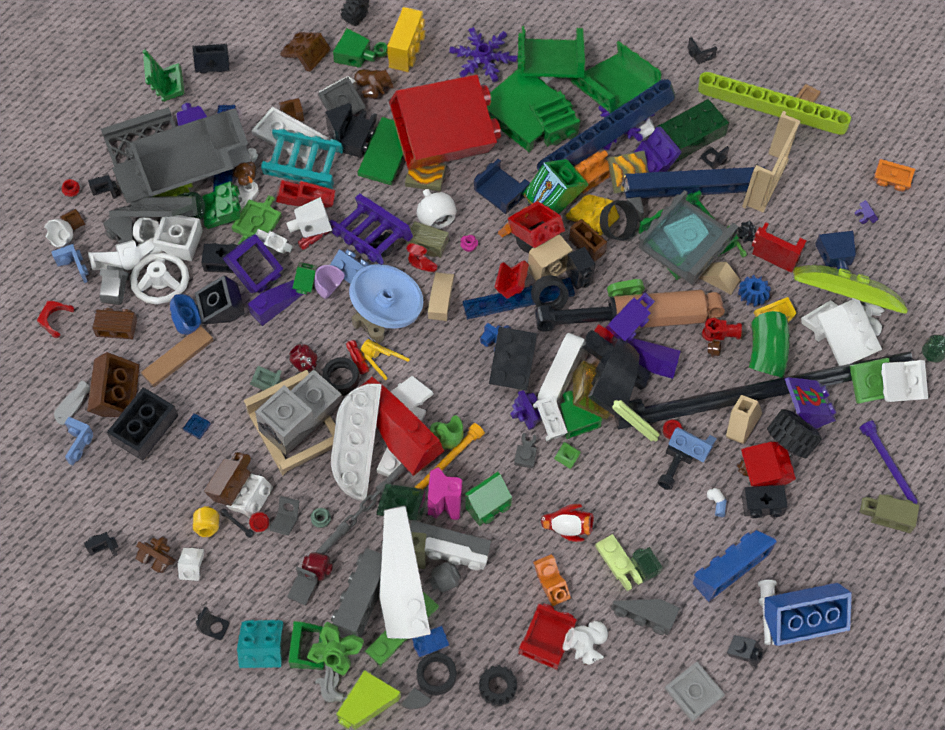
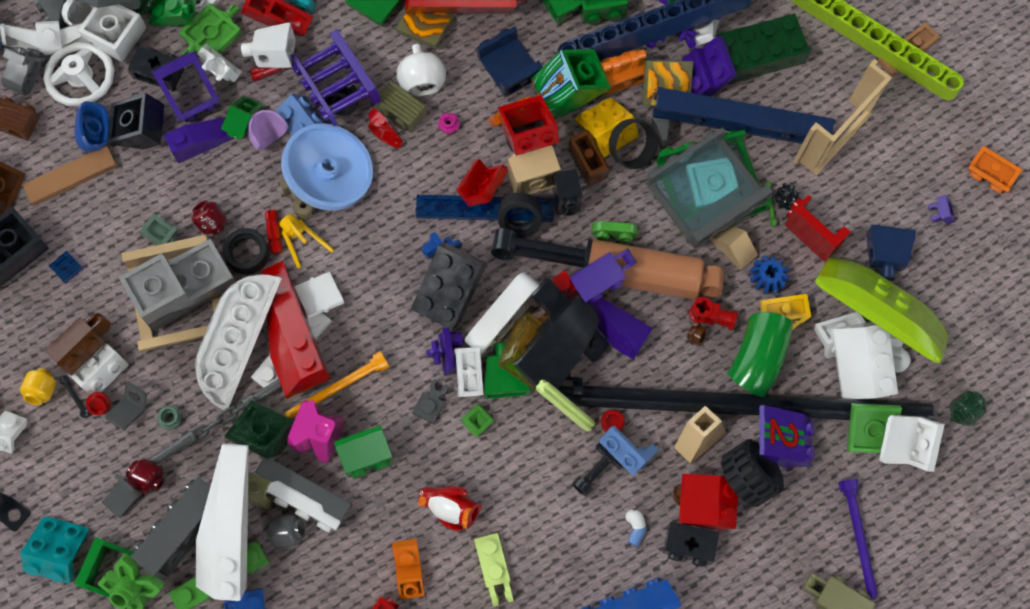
camera: 15 degrees right, 10 degrees up
(440, 296) = (393, 182): tan slope -> none
(448, 434) = (344, 357): bright green cap -> none
(646, 563) = (523, 581): clear green brick -> none
(720, 158) = (783, 94): black bracket -> none

